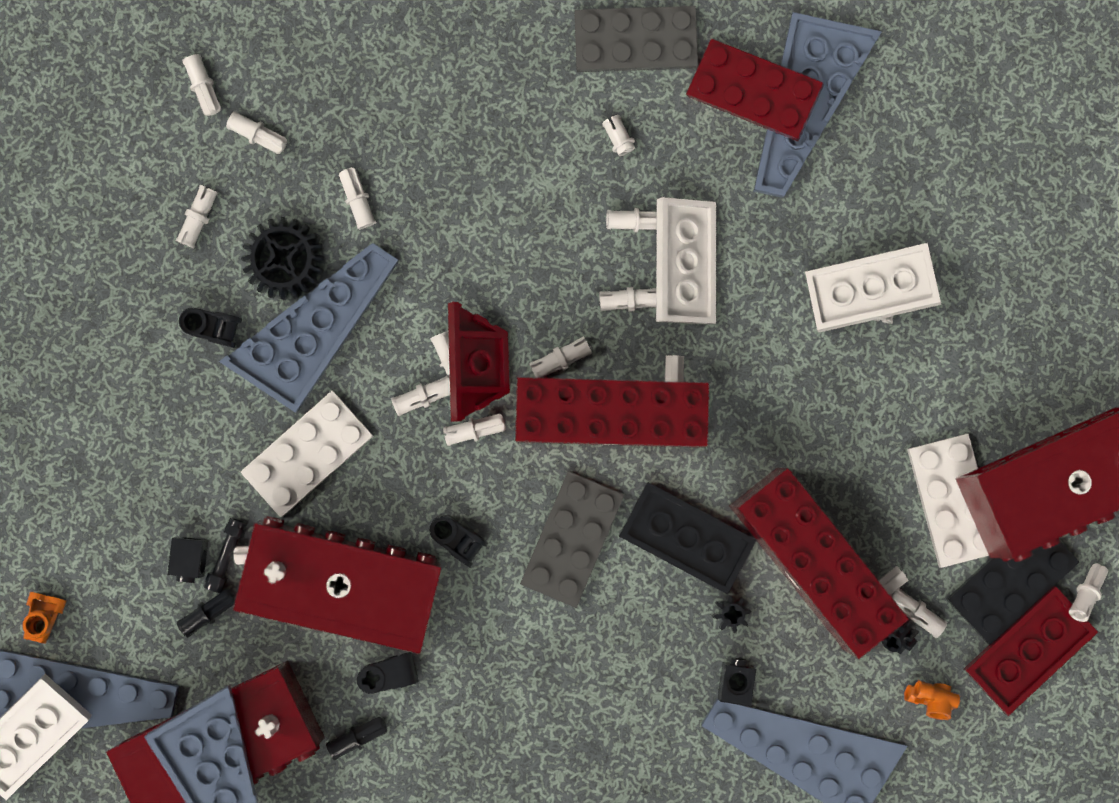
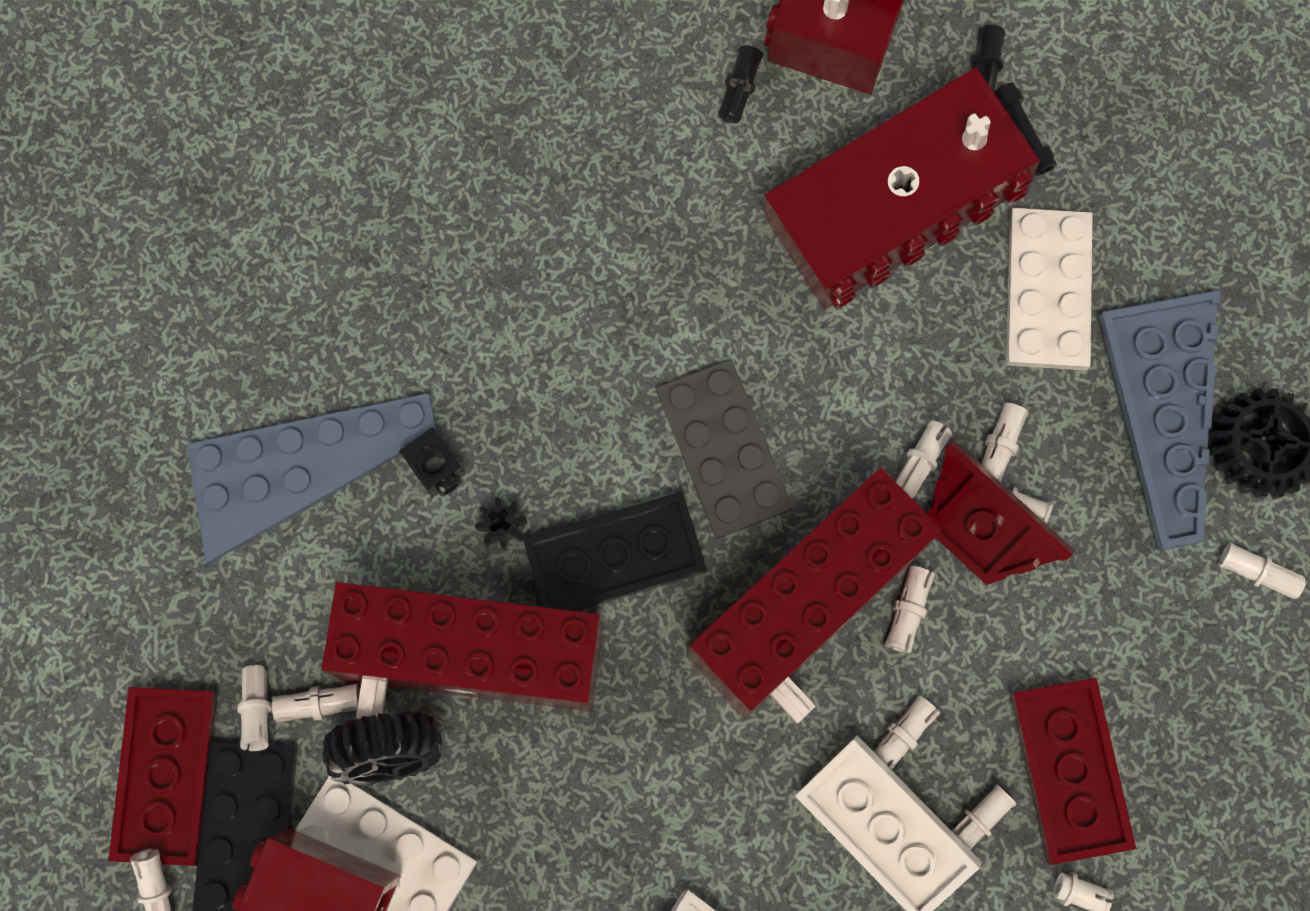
camera: 140 degrees right, 10 degrees down
(187, 558) = (1056, 92): black brick -> none
(215, 327) = (1259, 318): black piece -> none
(393, 673) = (768, 166): black piece -> none
(458, 540) = (830, 342): black piece -> none
(561, 198) = (1072, 771): none -> dark red plate
(902, 638) = (308, 663): black gear -> none
(908, 552) = (382, 748): none -> black gear
(936, 696) = (215, 637): orange plate -> none
(952, 640) = (254, 708): none -> white axle

